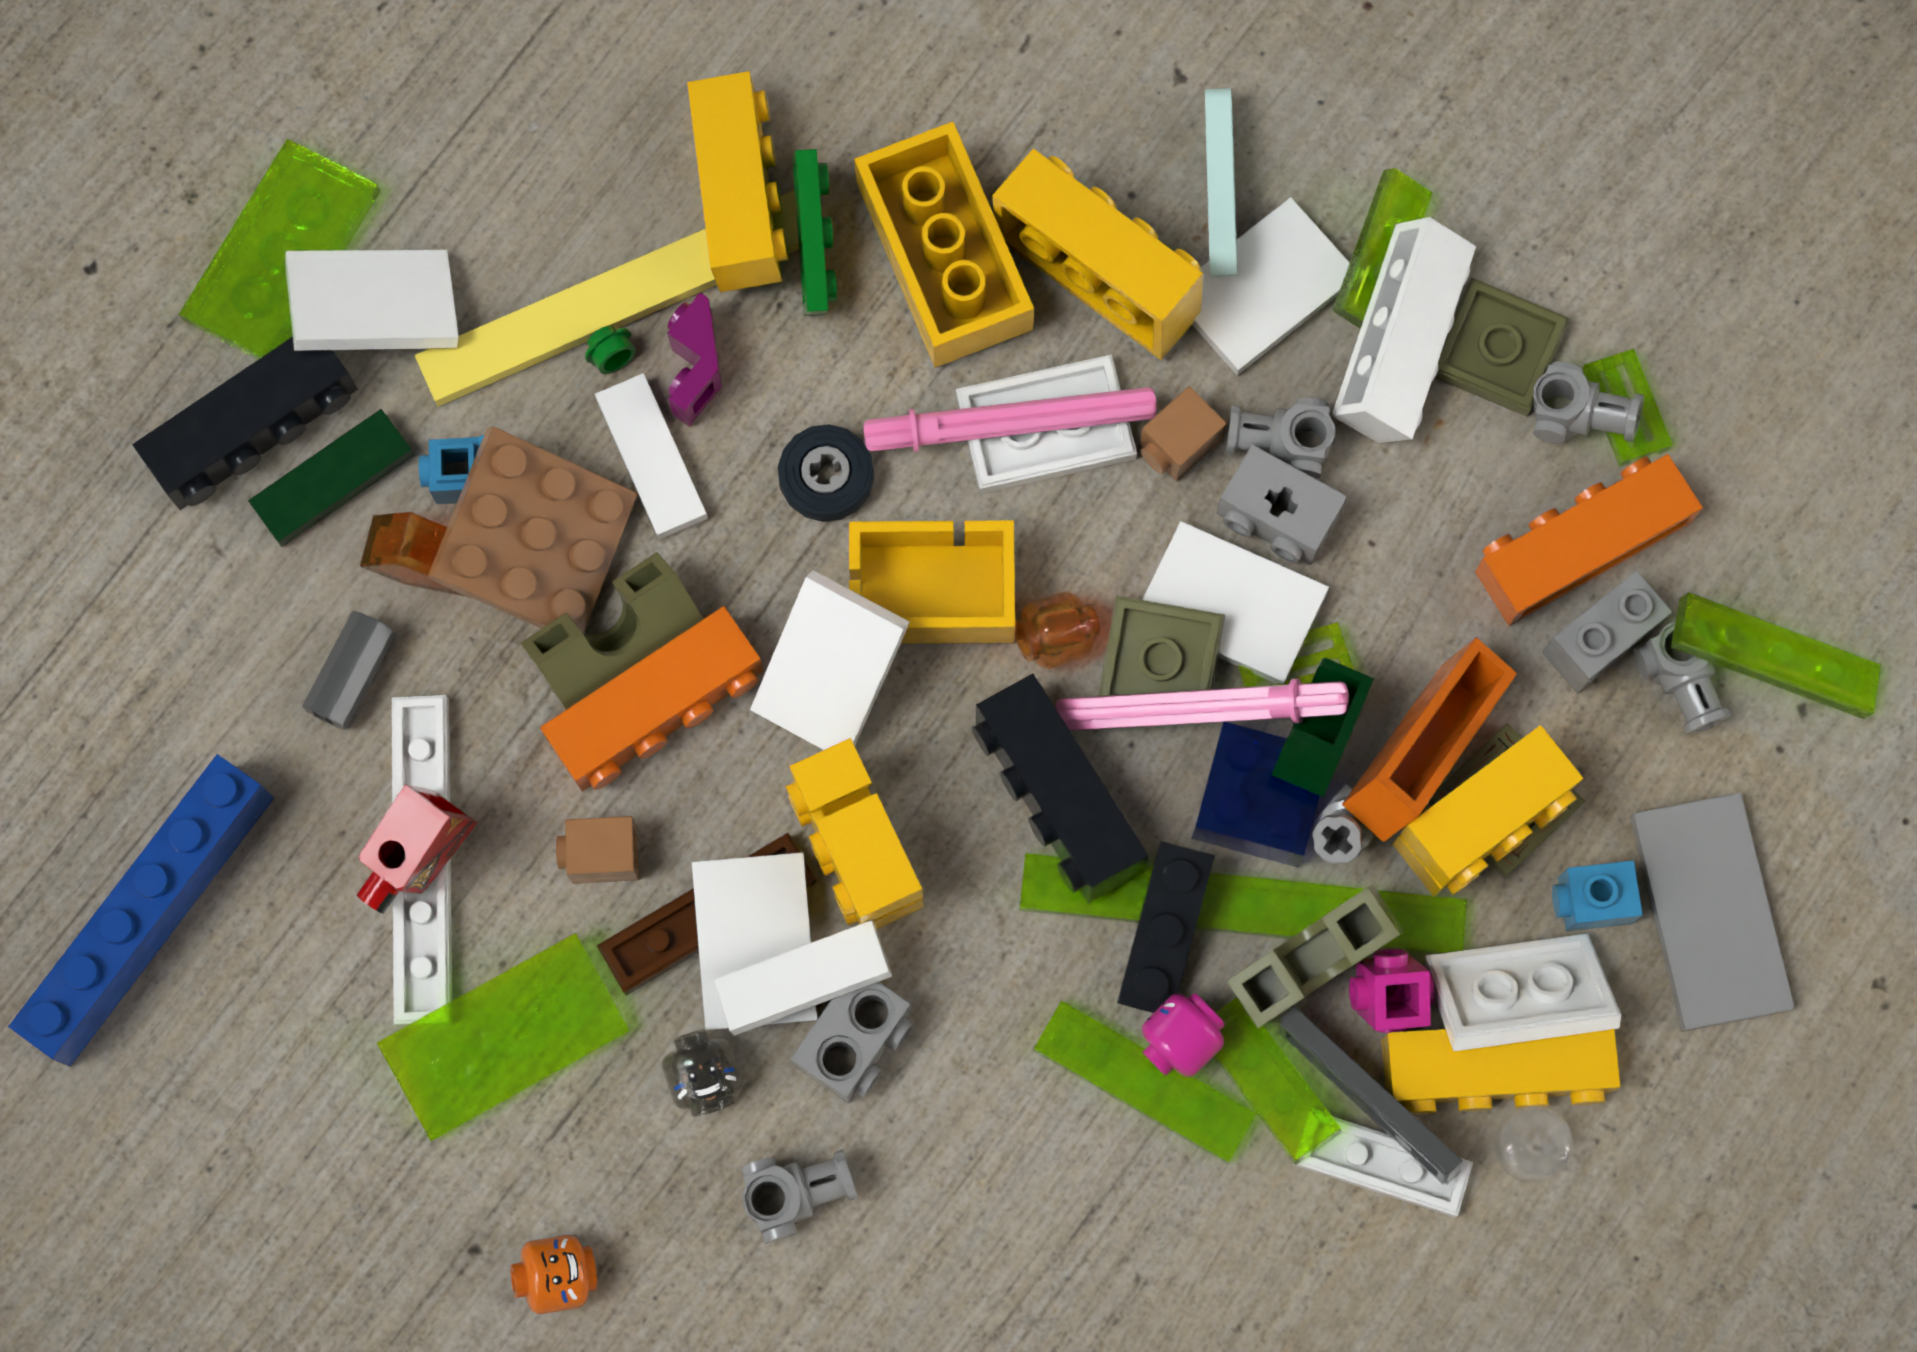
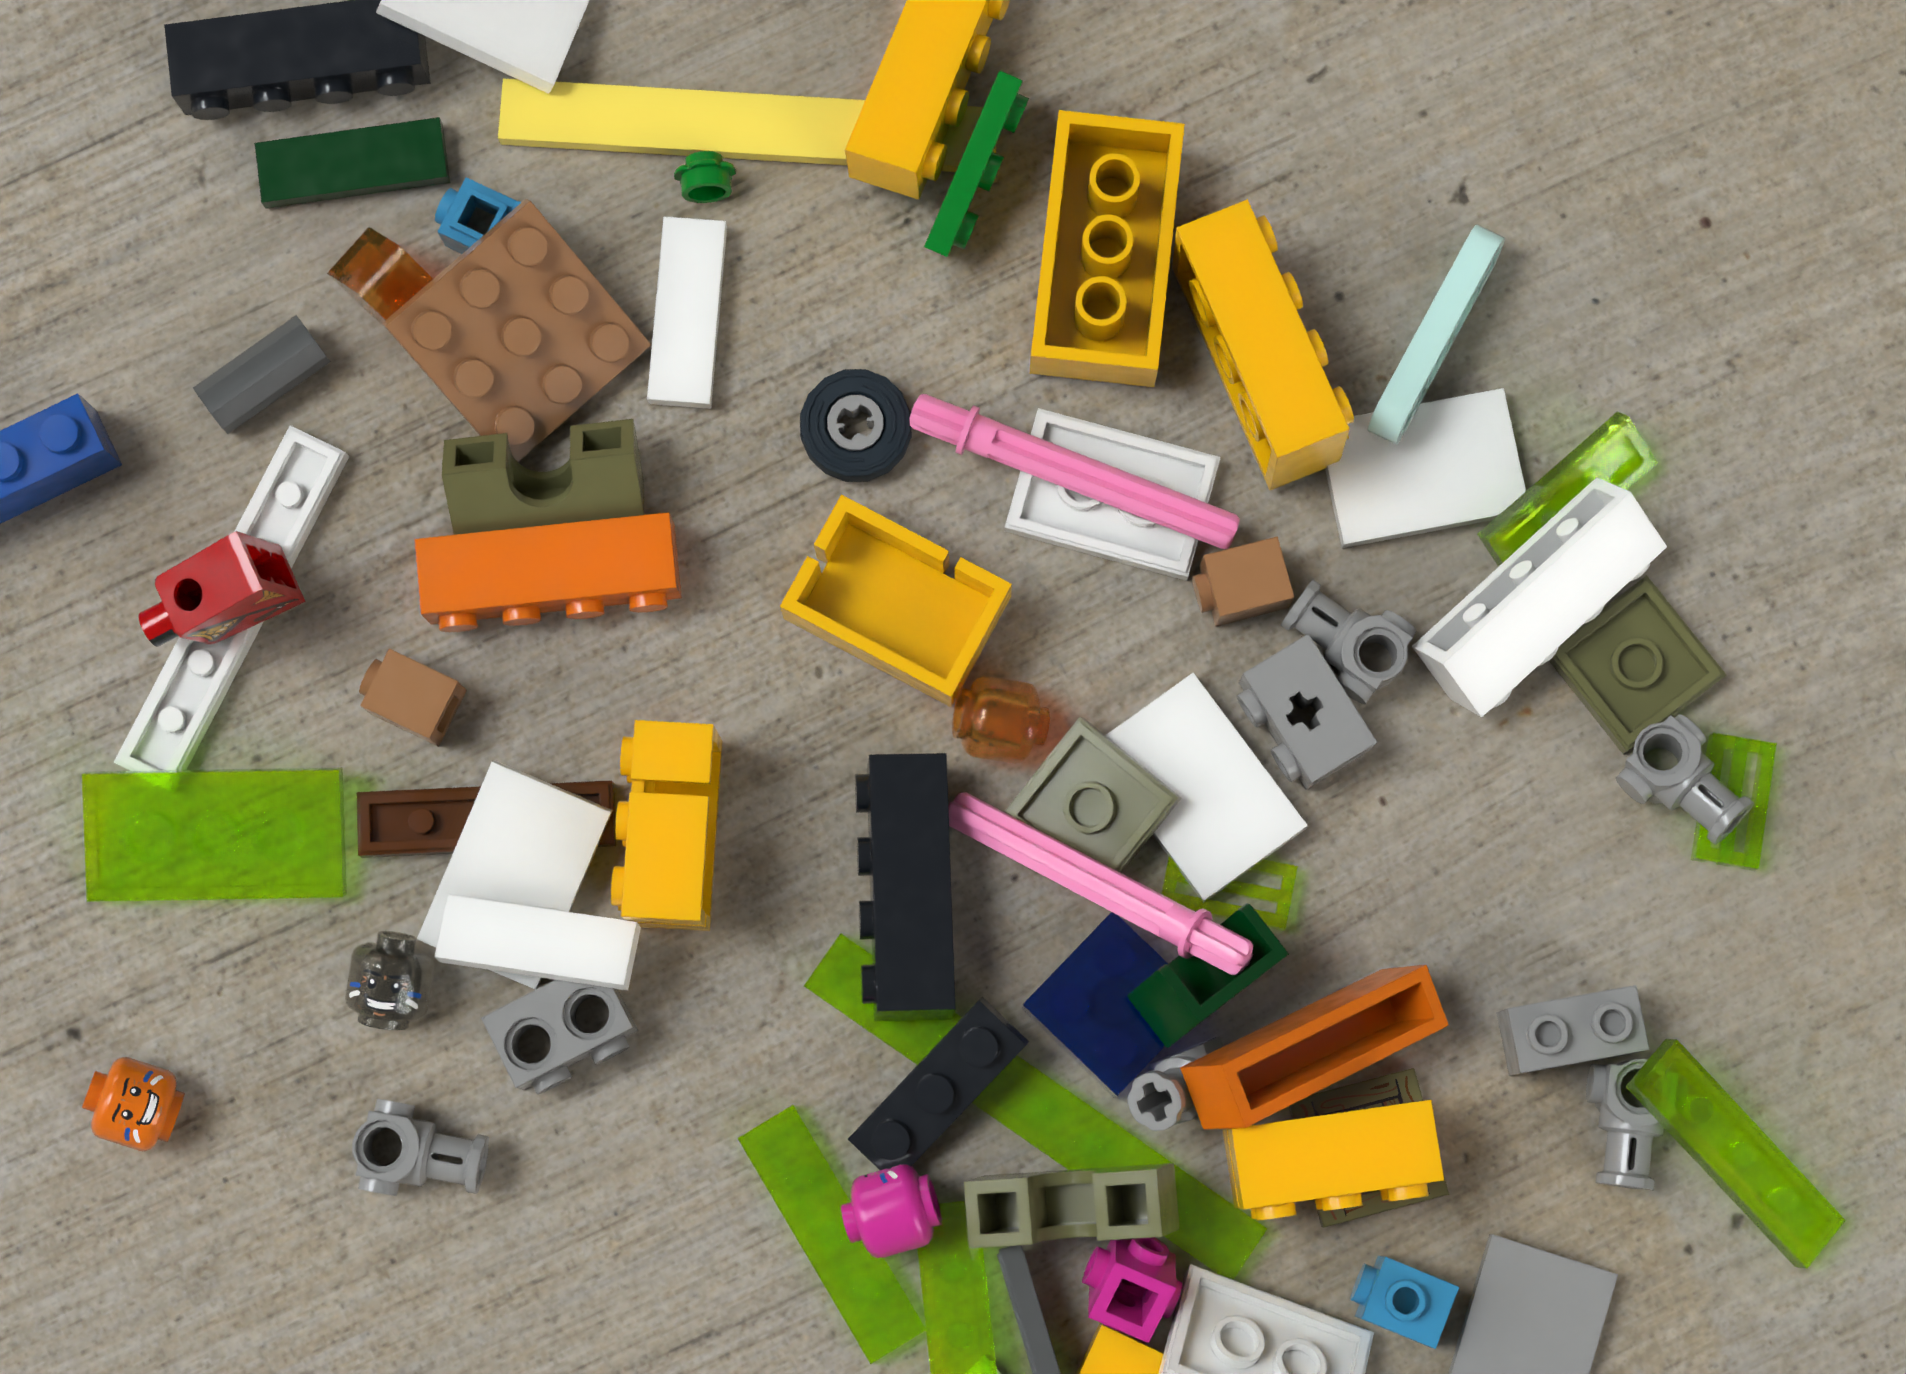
camera: 30 degrees right, 5 degrees up
(694, 340) = (799, 210): magenta slope -> none
(829, 663) = (741, 632): white tile -> none
(1587, 538) = (1610, 920): orange brick -> none

